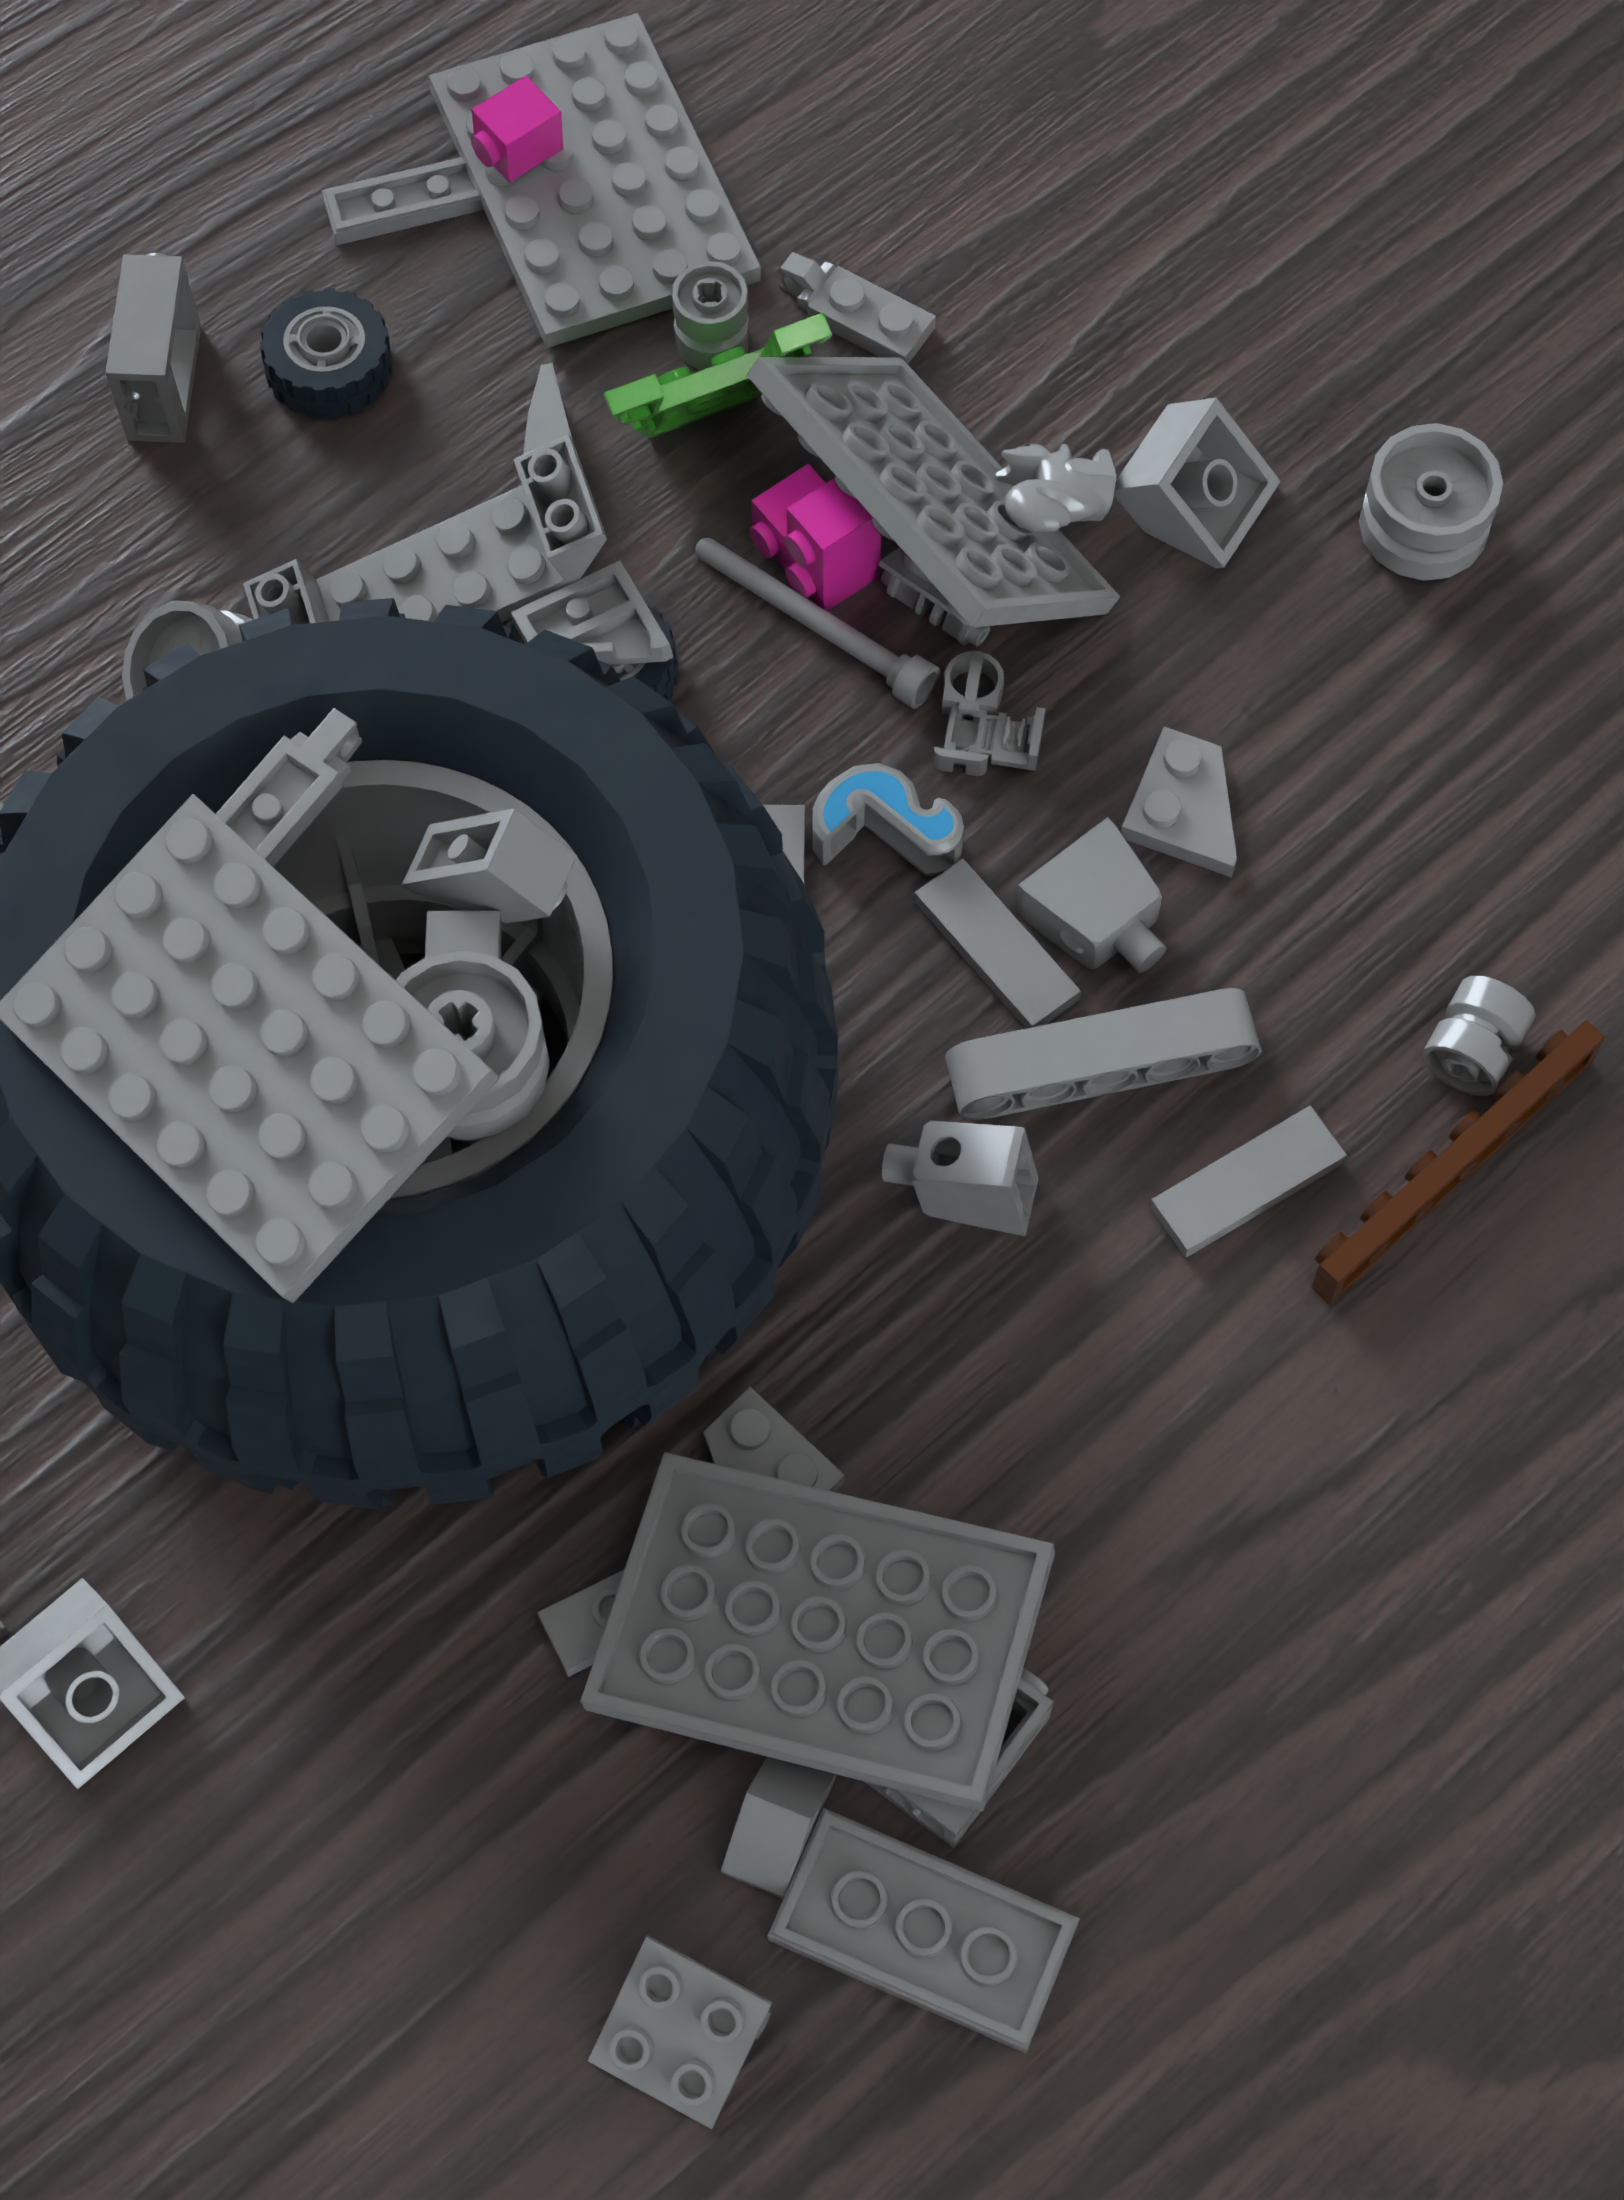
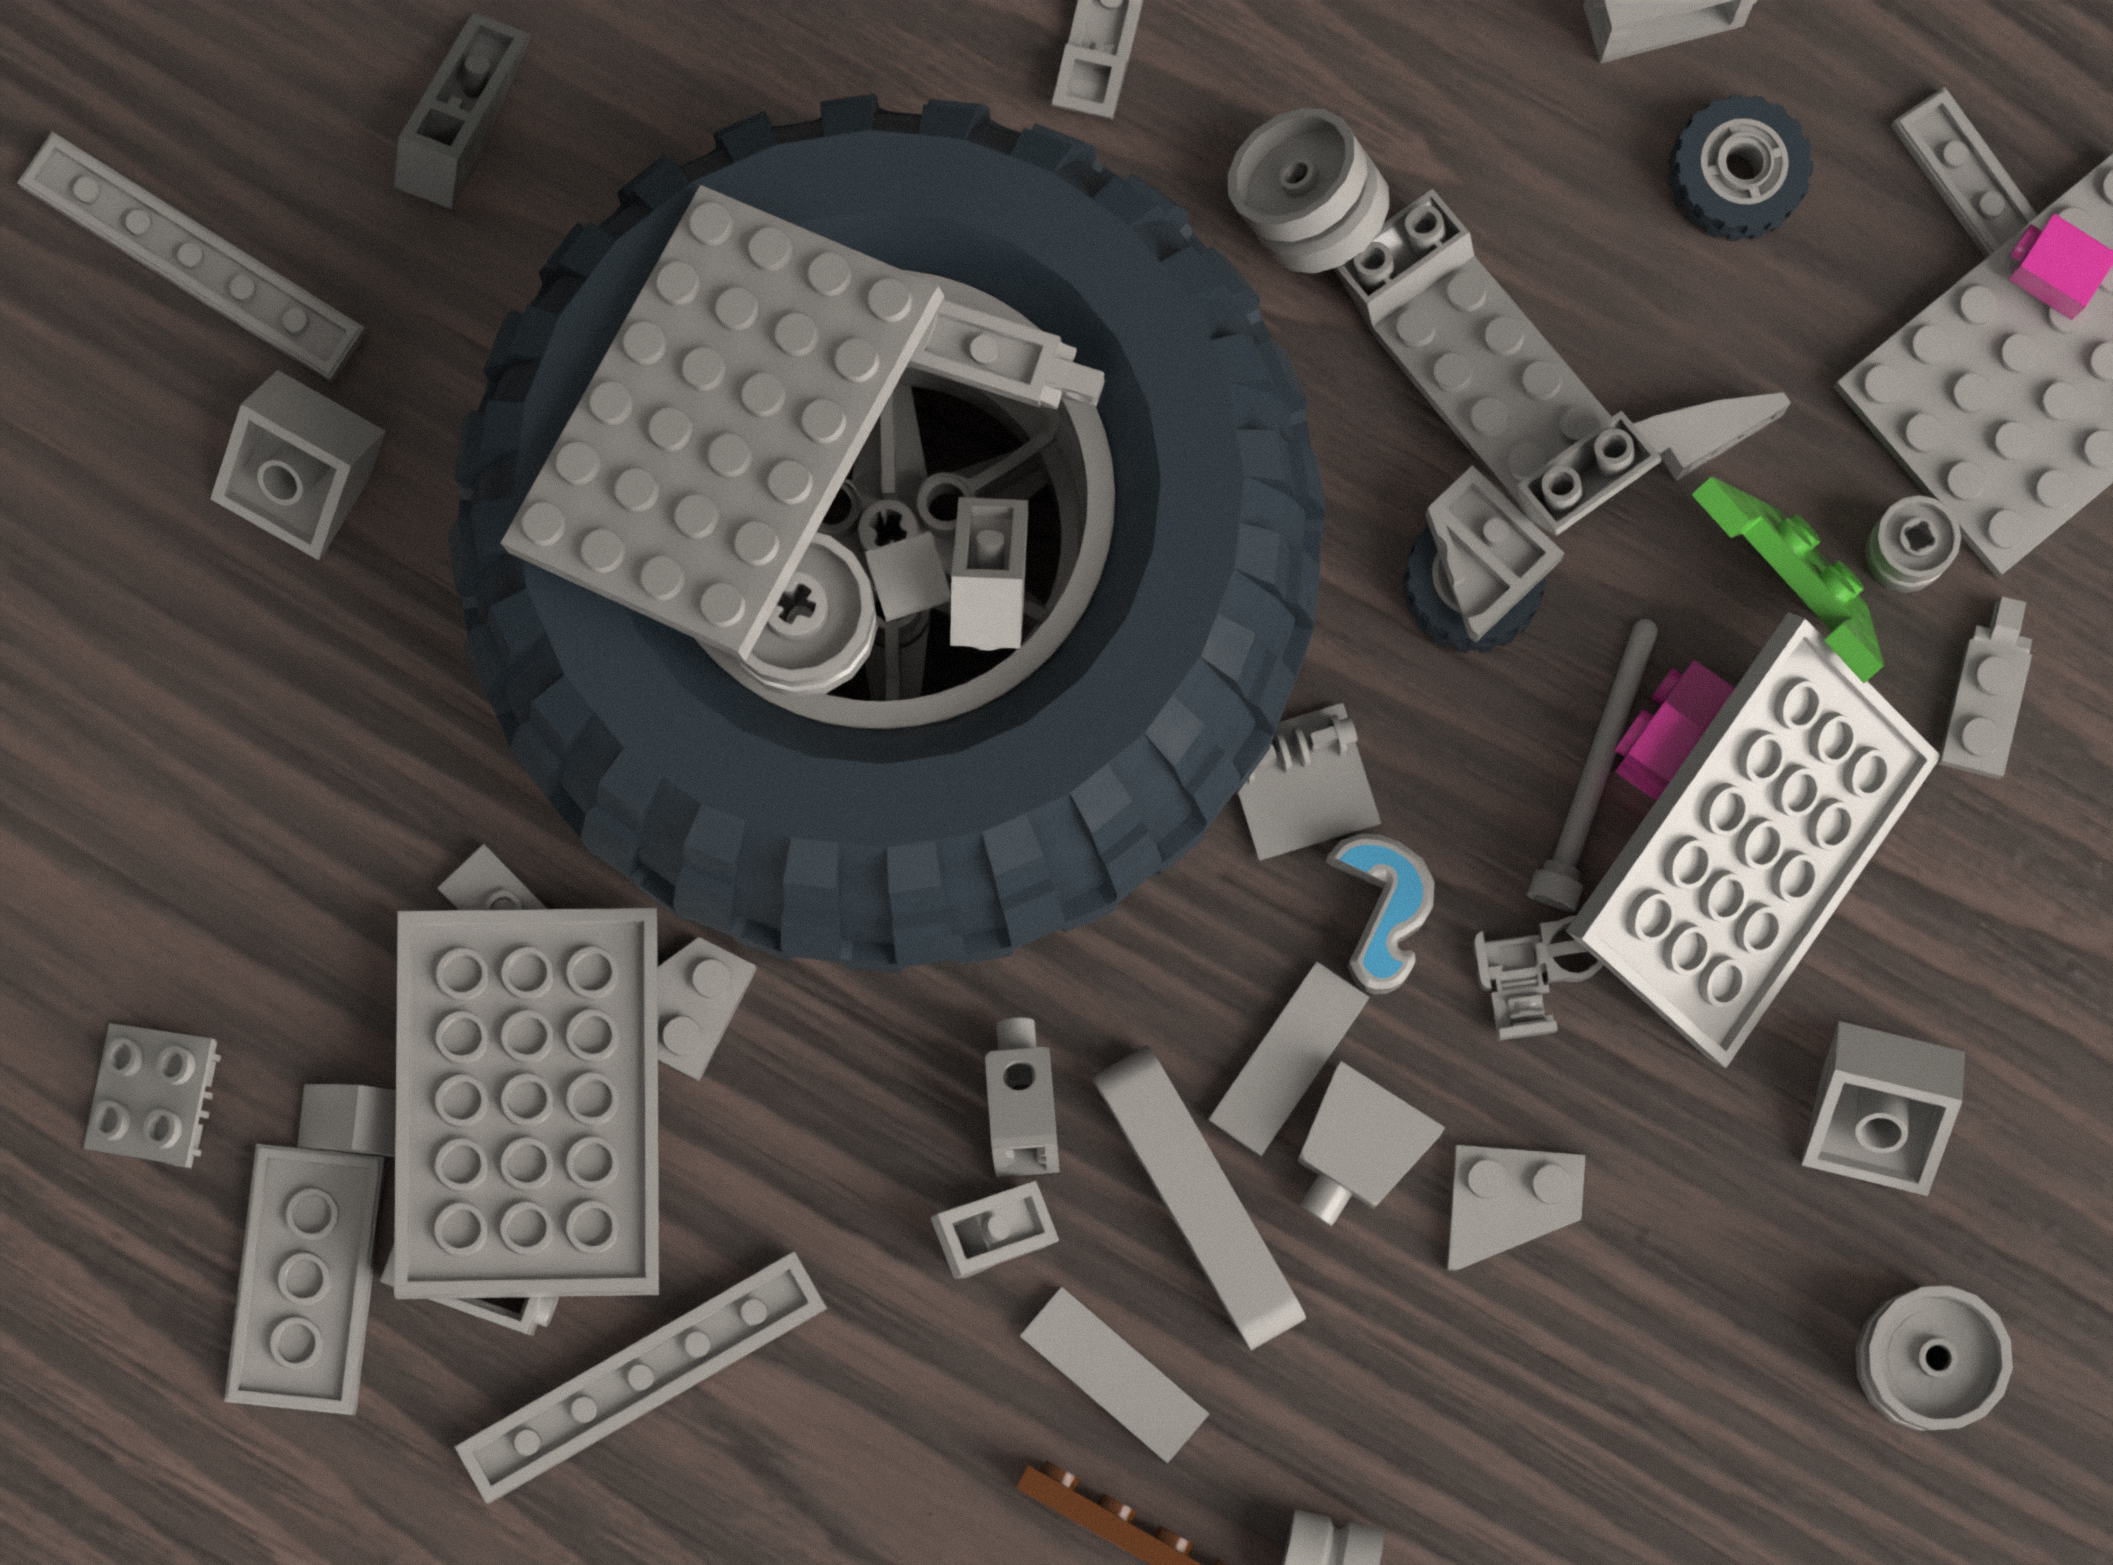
camera: 75 degrees right, 15 degrees up
(1056, 487) = (1819, 976): light grey animal -> none
(1081, 1242) = (994, 1230): none -> light grey slope
(1126, 1620) = (640, 1377): none -> light grey plate

